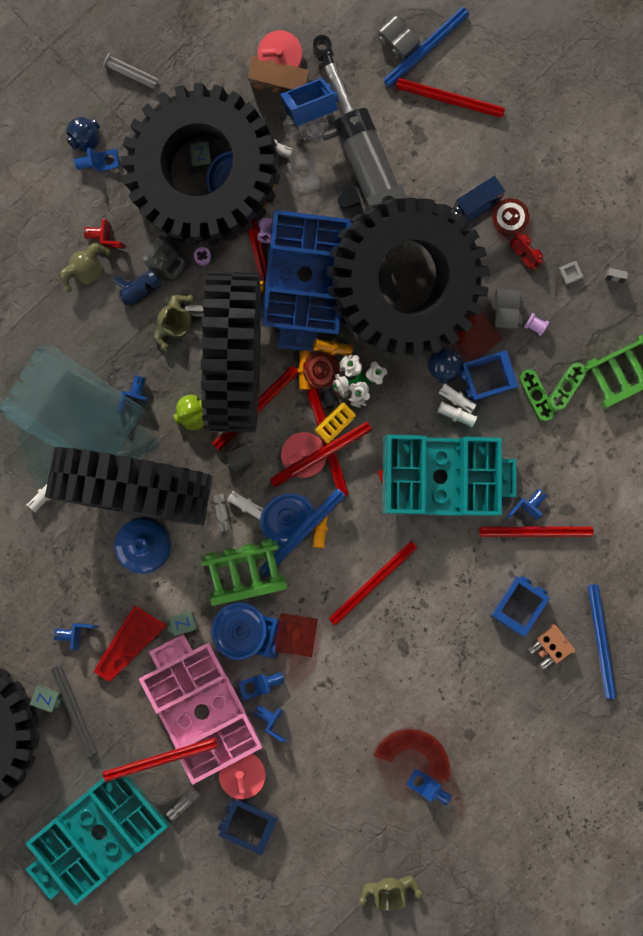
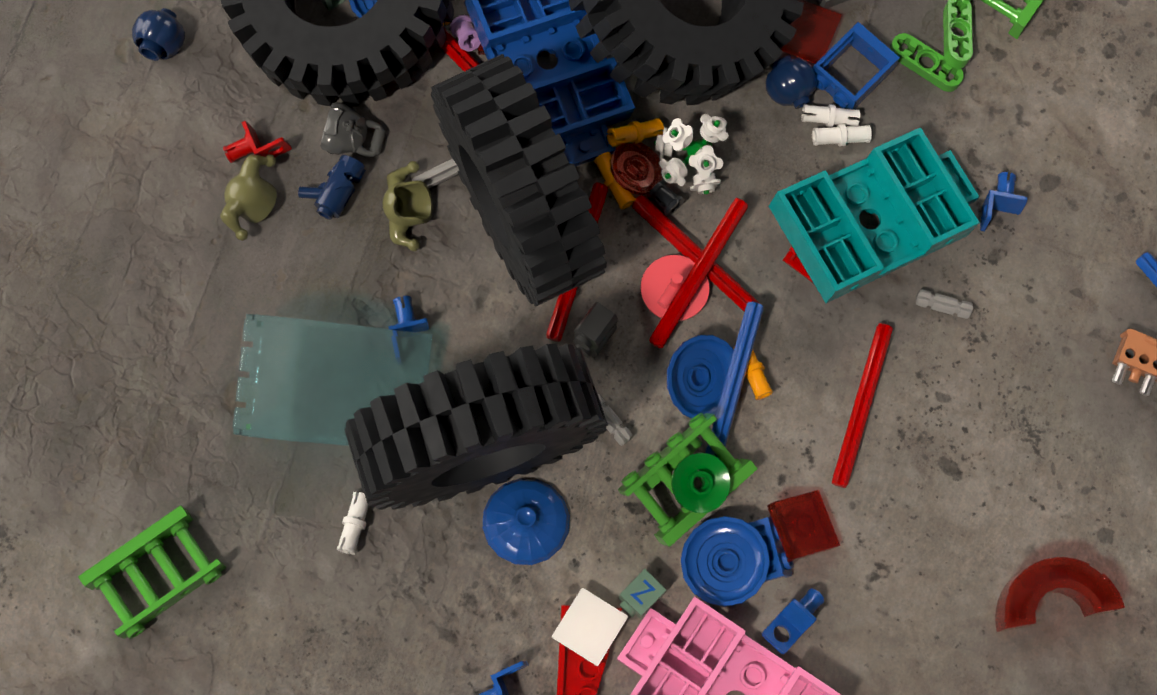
camera: 30 degrees left, 10 degrees down
(97, 160) = (195, 57): blue bracket -> none
(143, 625) = (589, 626): none -> white sticker
(189, 412) = (496, 309): lime plant -> none
(203, 262) = (393, 102): lavender bush -> none
(245, 504) = (637, 391): white pin -> none
(252, 588) = (714, 485): none -> green dish
(271, 720) = (835, 659): blue bracket -> none
(344, 414) = (701, 208): yellow slope -> none
(429, 789) = (1100, 635): blue bracket -> none
(457, 550) = (944, 304): none -> light grey axle
(524, 582) = (1065, 358): blue window -> none
(537, 531) = (1029, 228): red axle -> none

